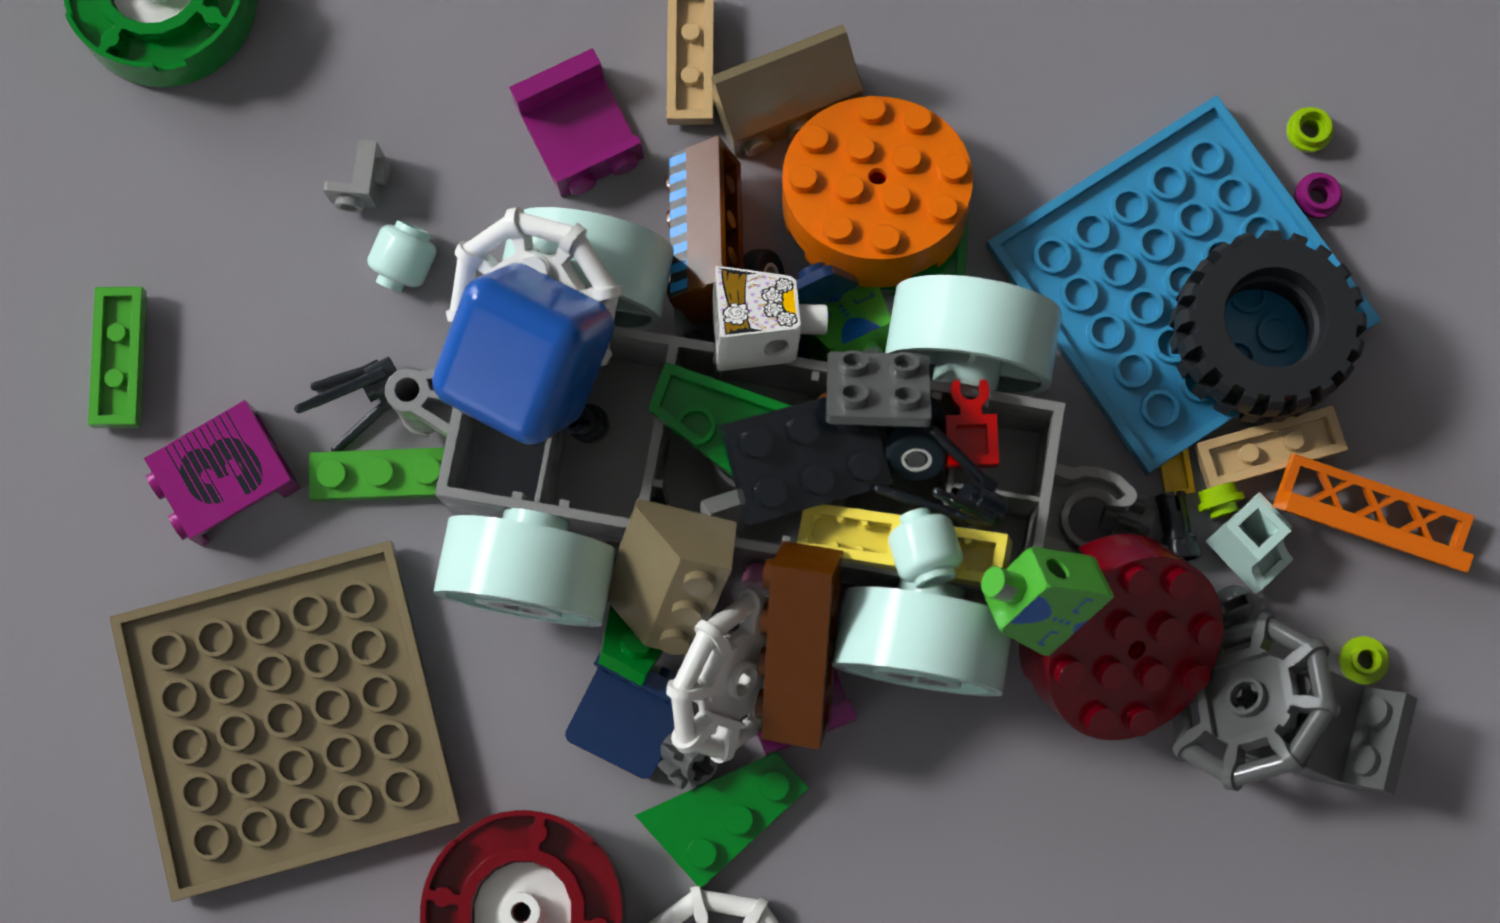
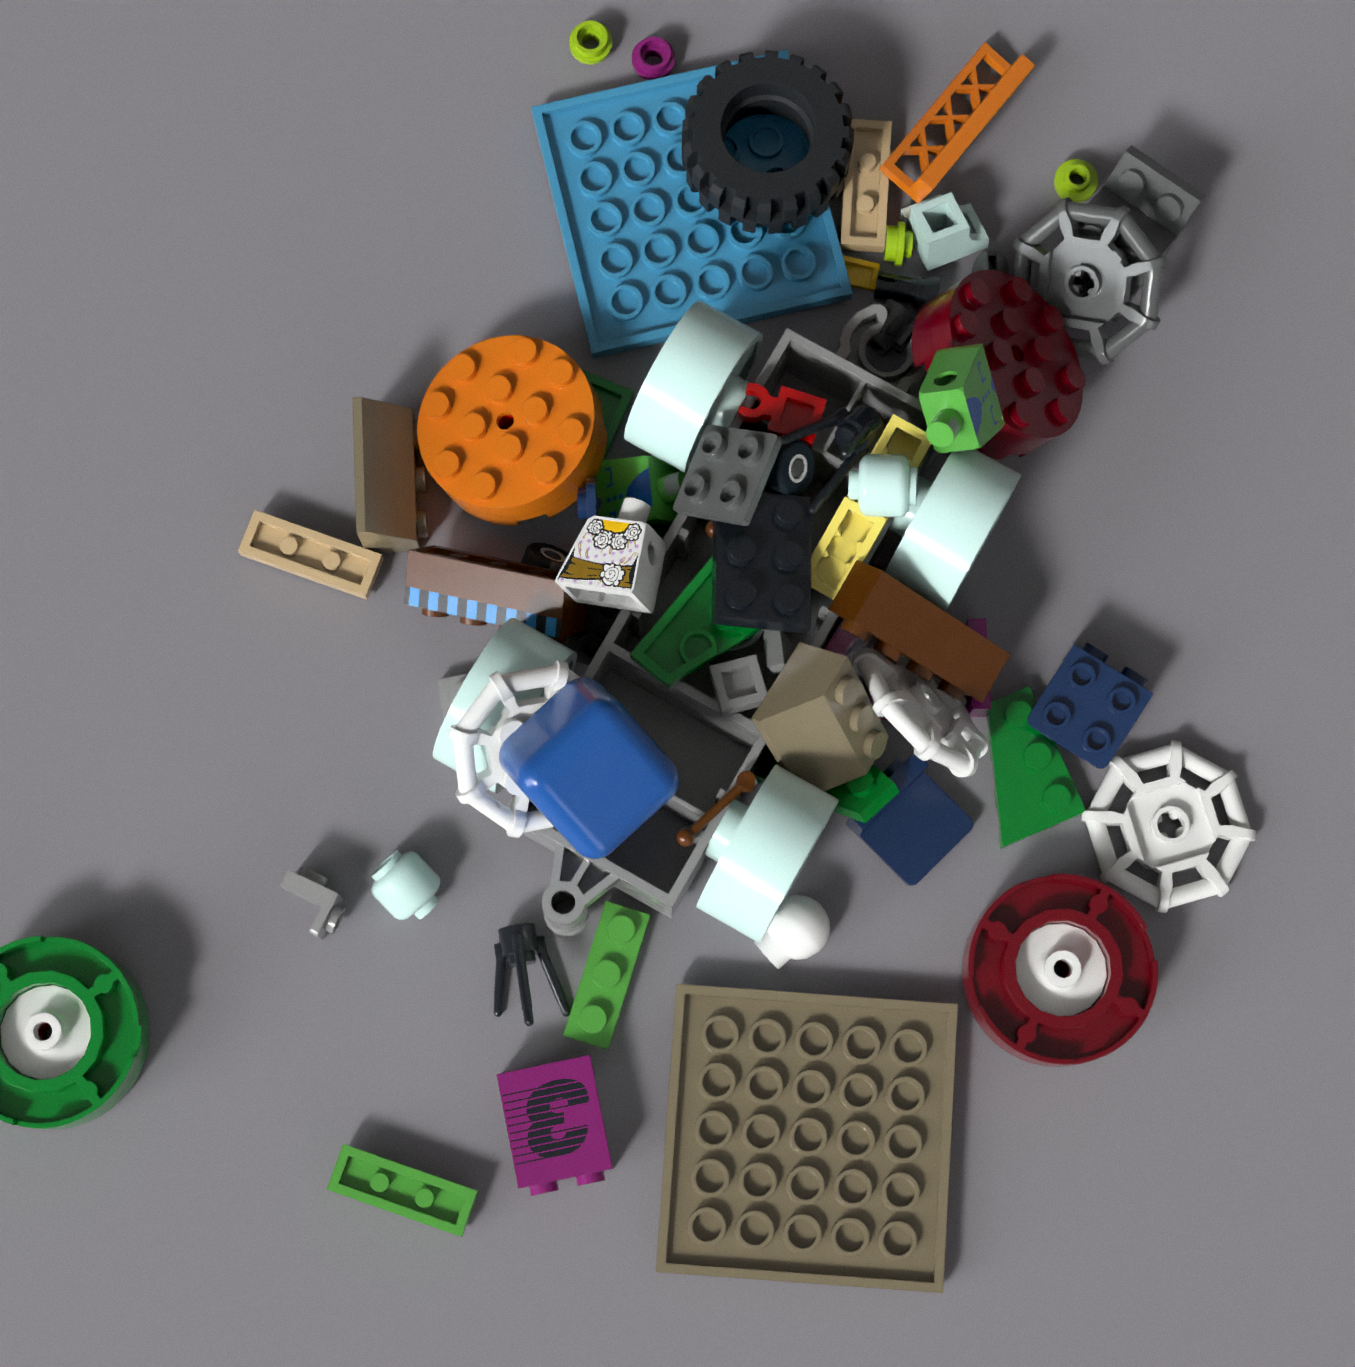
camera: 75 degrees left, 0 degrees up
(479, 637) = (796, 931): none -> white piece
(577, 124) = (338, 682): magenta panel -> none
(580, 520) = (745, 783): none -> reddish brown hinge
(674, 478) = (738, 684): none -> light grey plate
(685, 766) = (972, 789): dark grey gear -> none
(809, 855) = (1090, 705): none -> dark blue bracket

